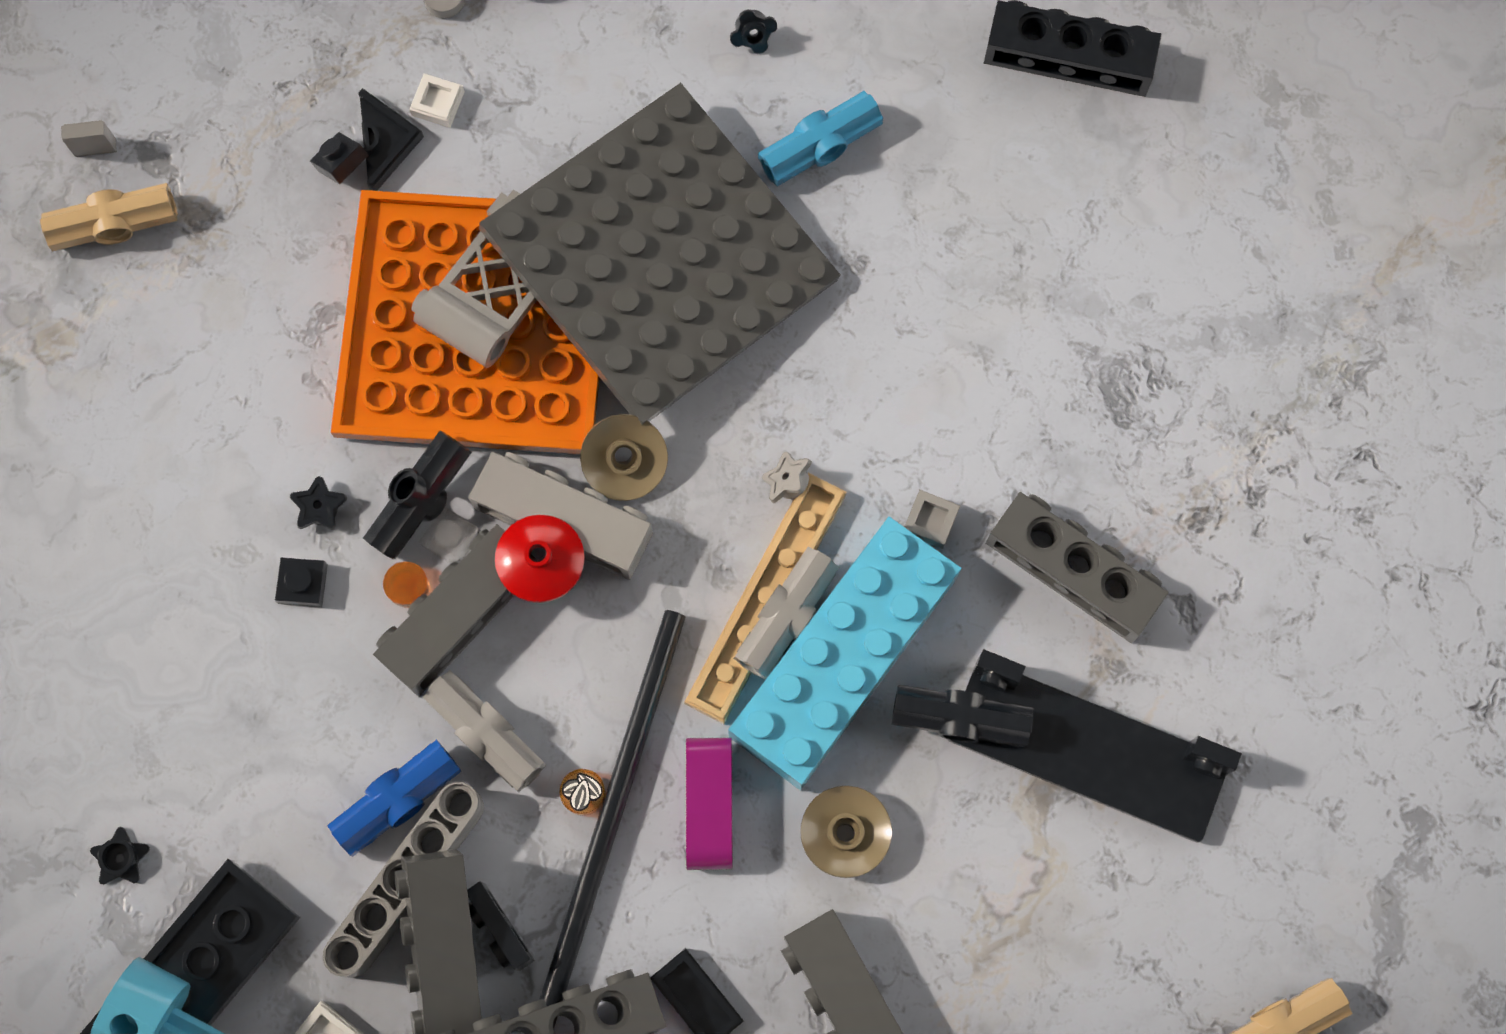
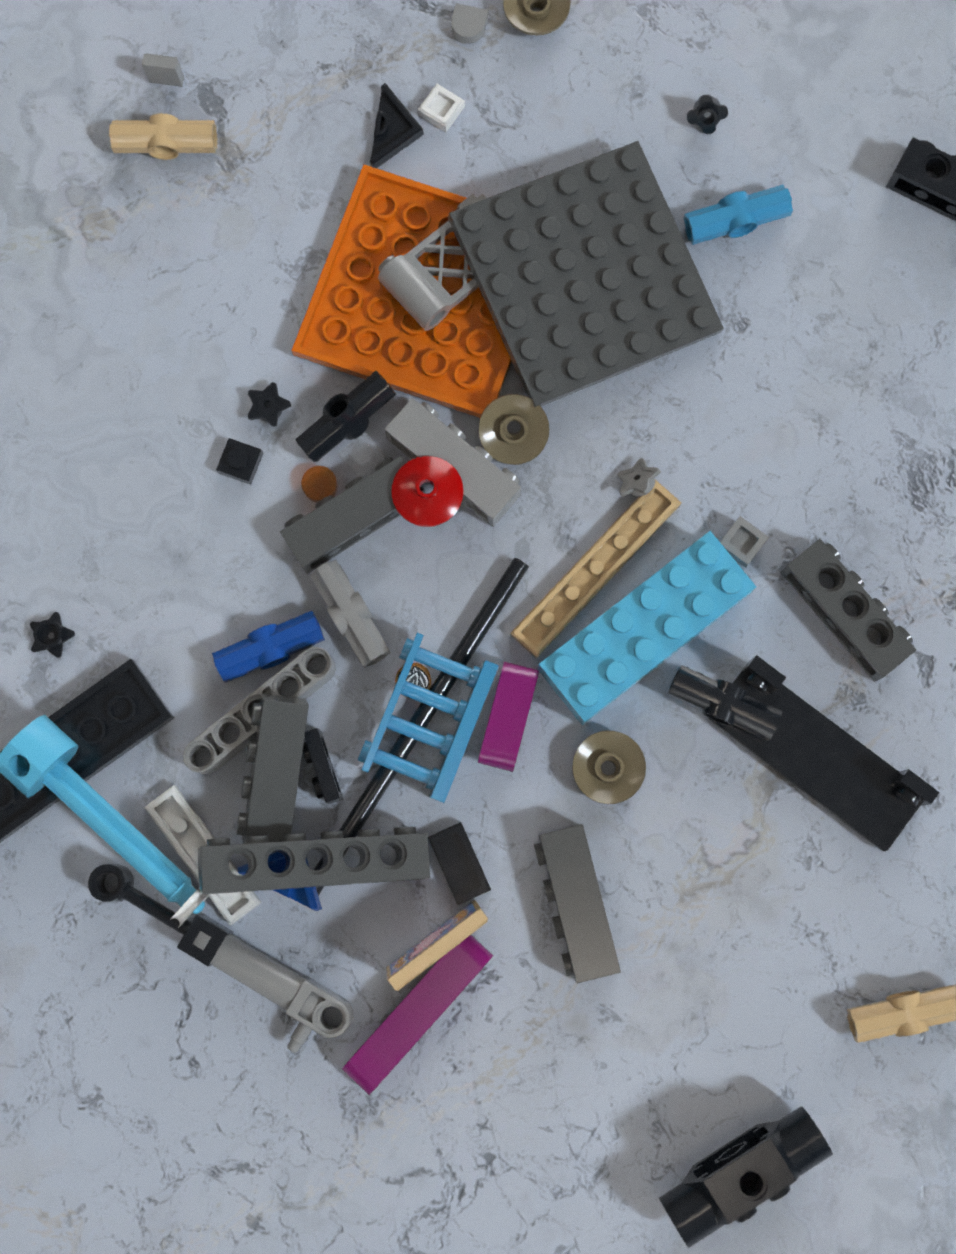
camera: 20 degrees right, 5 degrees up
(339, 157) = (352, 134): black plate -> none
(648, 858) = (464, 712): none -> dark azure fence
(786, 613) = (609, 585): light grey piece -> none

